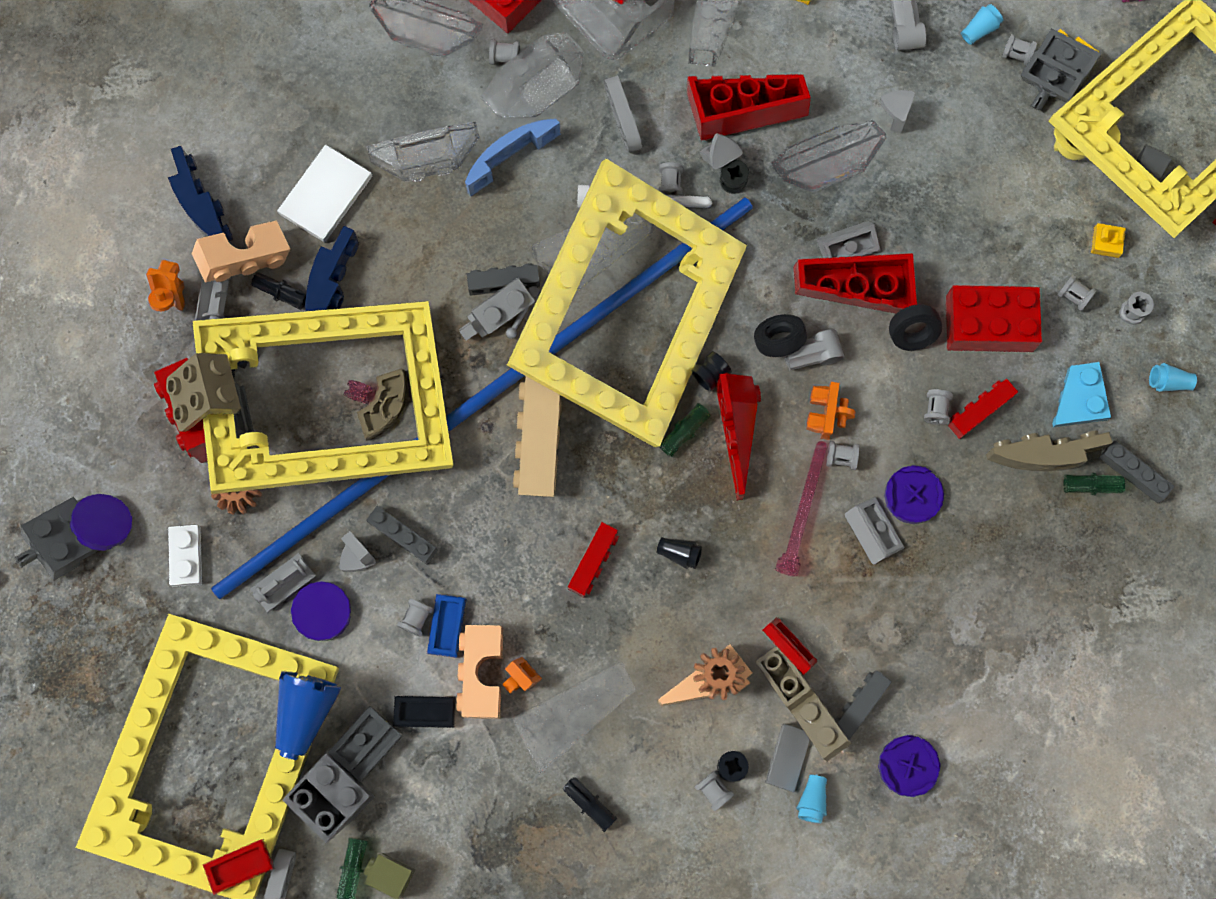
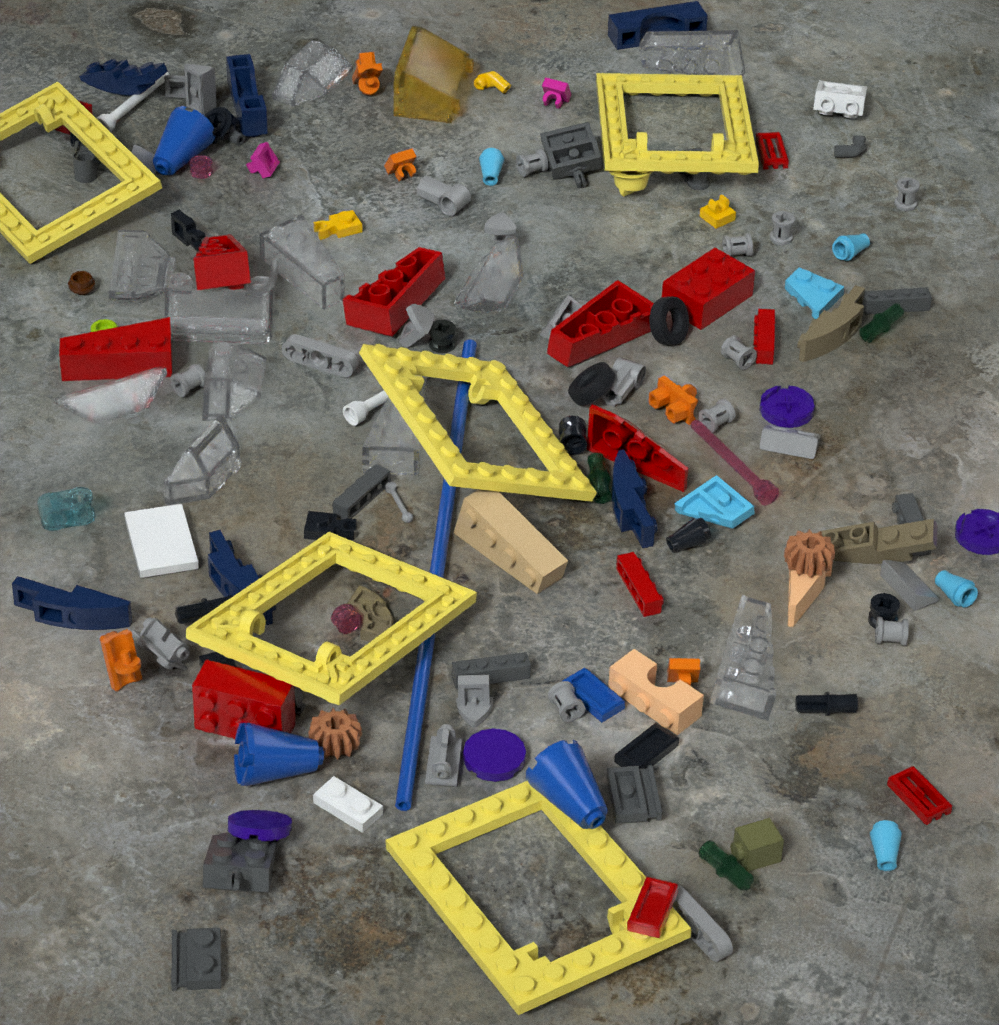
camera: 50 degrees left, 35 degrees down
(171, 472) = (273, 754): none -> blue cone
(202, 388) = (249, 655): dark tan bracket -> none
(220, 260) = (153, 598): light nougat arch -> none
(289, 105) = (63, 510): none -> clear light blue piece
(328, 798) = (653, 827): flat silver slope -> none
(445, 287) = (320, 523): none -> black plate
(497, 309) = (382, 505): light grey hinge -> none
(537, 132) = (271, 406): medium blue slope -> none
(683, 465) = (629, 501): none -> dark blue slope
(738, 541) = (716, 504): none -> medium azure wing
(790, 645) = (824, 522): red tile -> none

